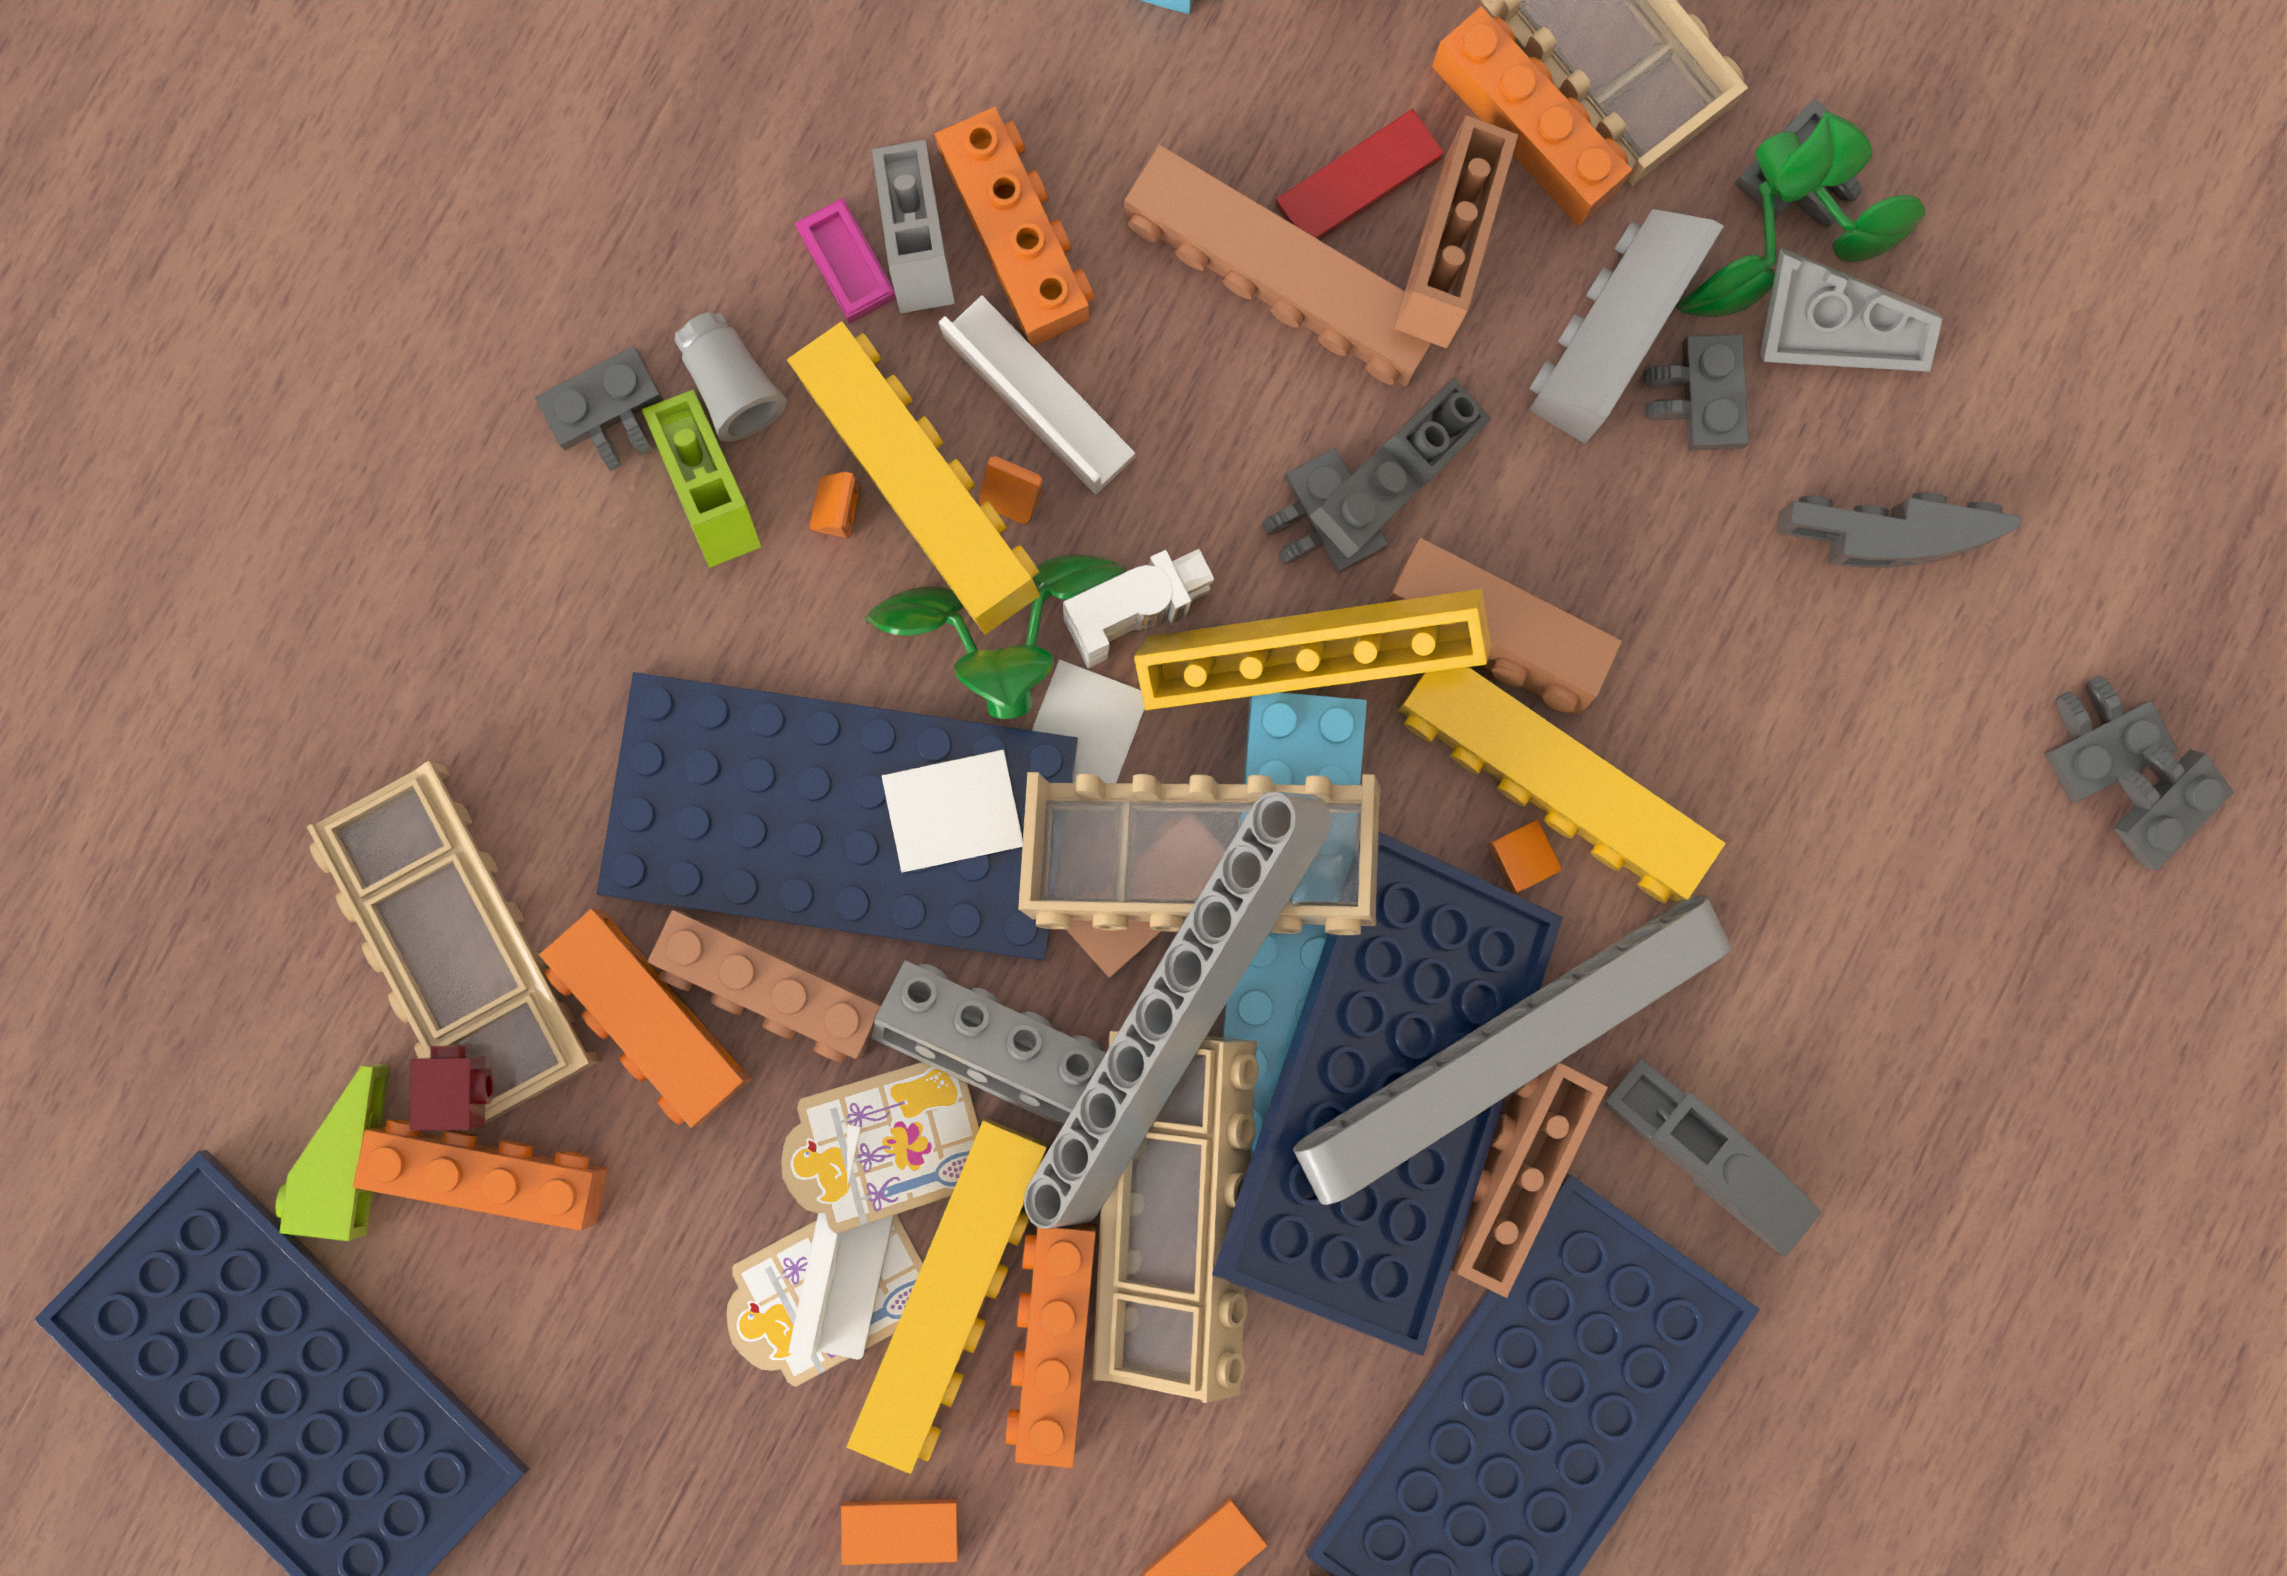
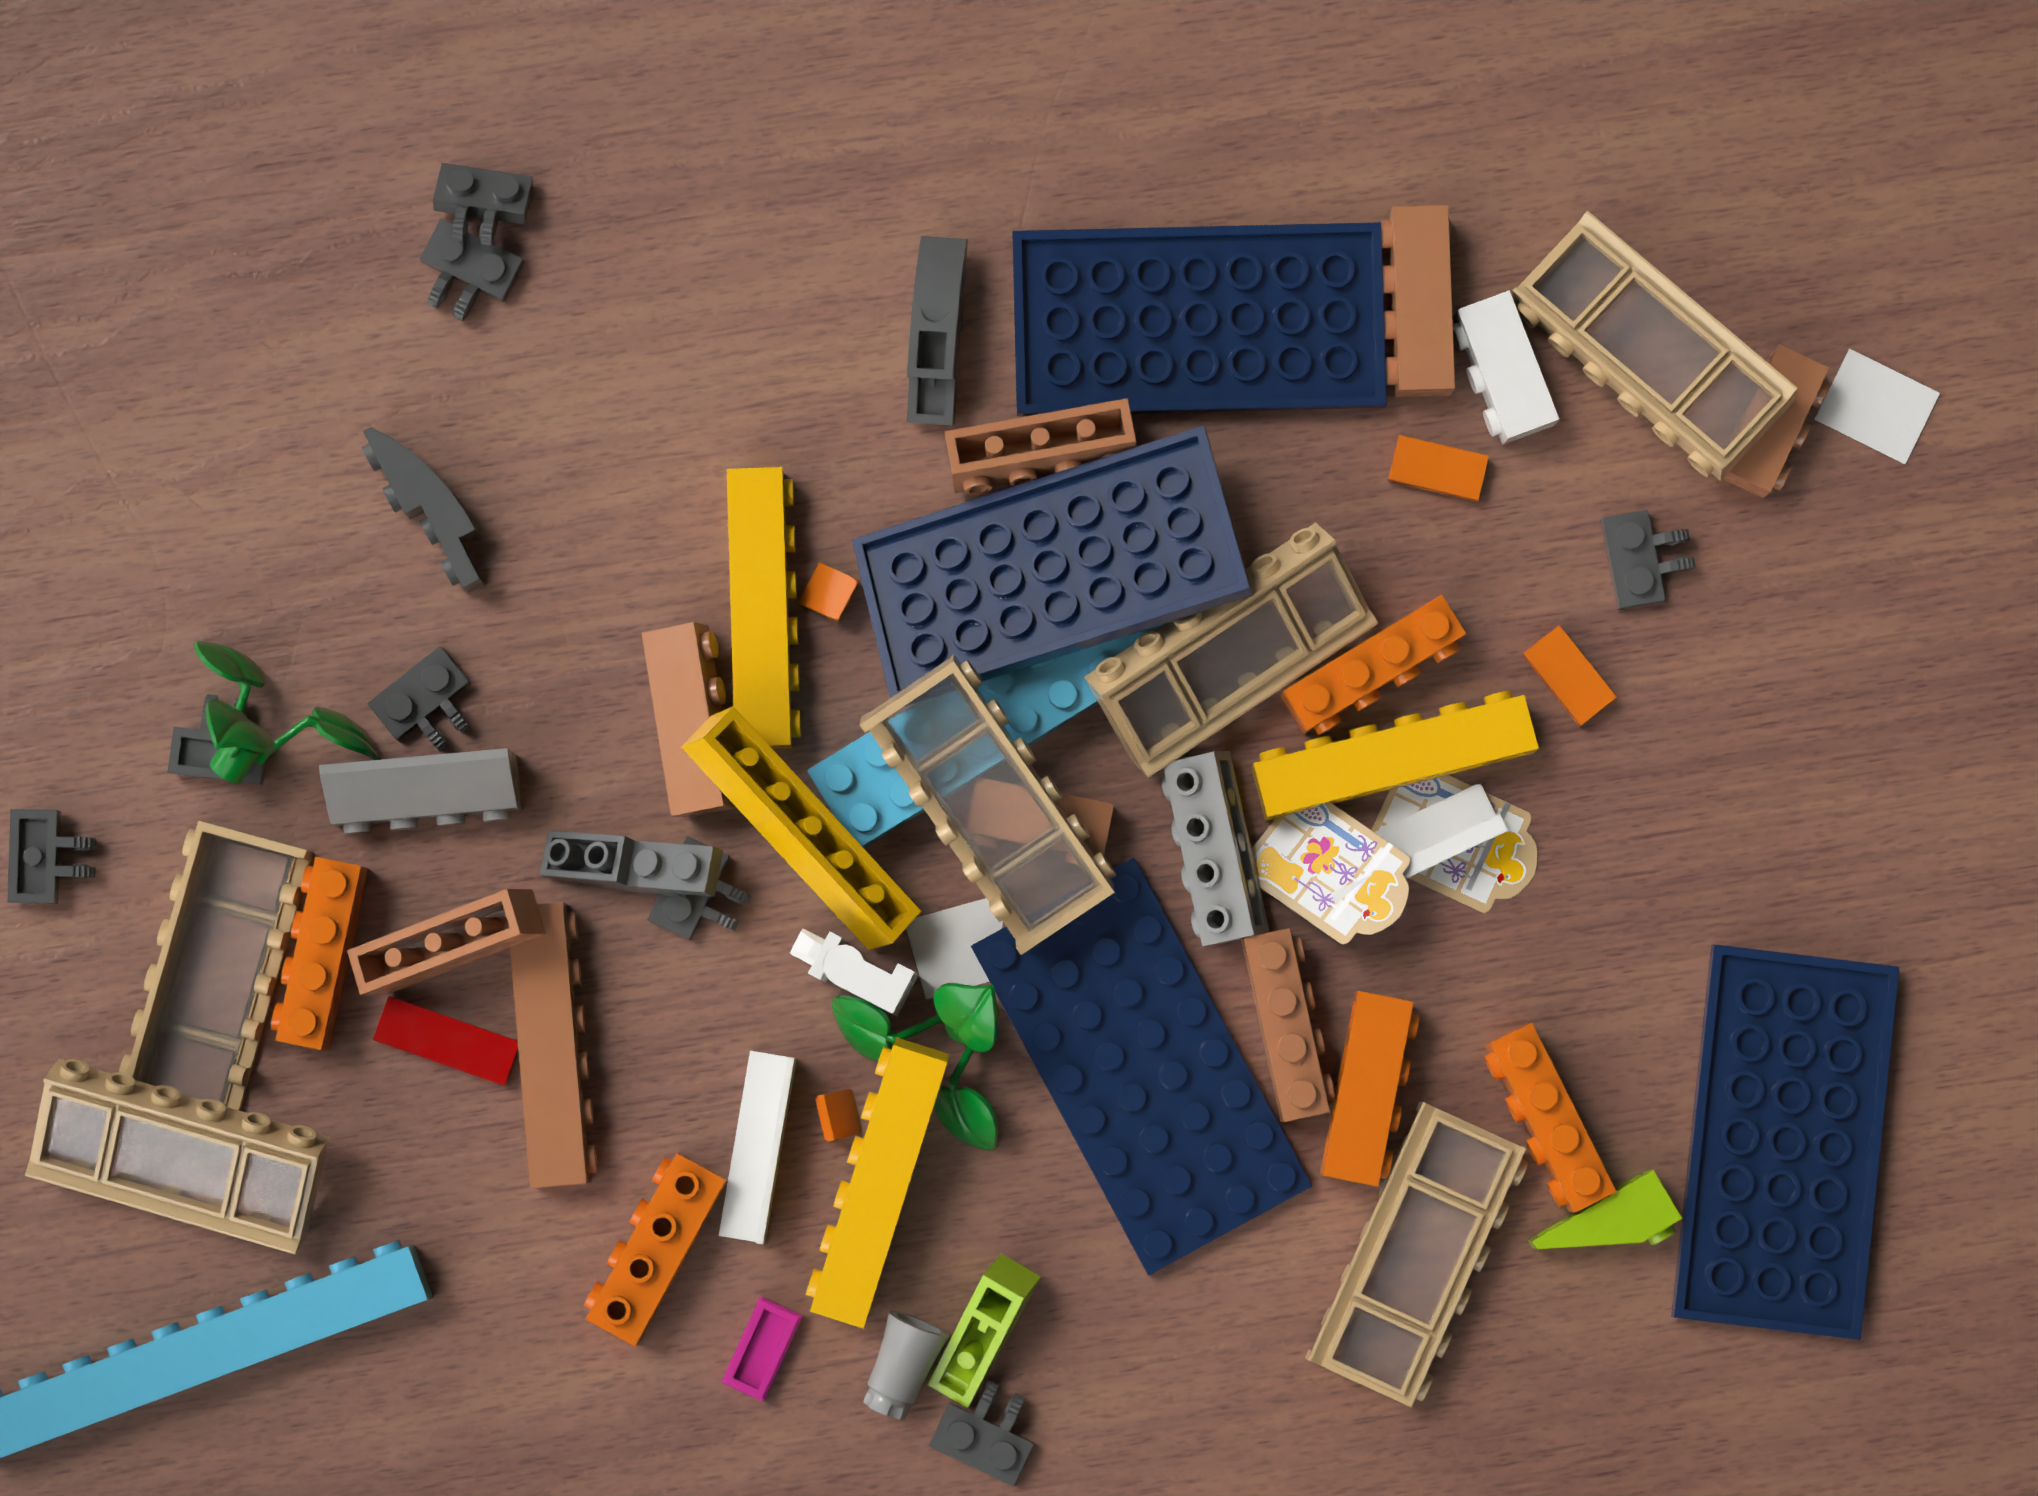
camera: 130 degrees left, 0 degrees up
(449, 1089) = (1506, 1174): dark red brick -> none
(835, 504) = (935, 1228): orange slope -> none
(912, 227) = (705, 1319): light grey slope -> none
(952, 811) = (1081, 990): white sticker -> none
(1178, 1007) = (1136, 740): light grey beam -> none
(1510, 1050) = (963, 509): light grey beam -> none
(1844, 321) = (310, 641): light grey wing -> none

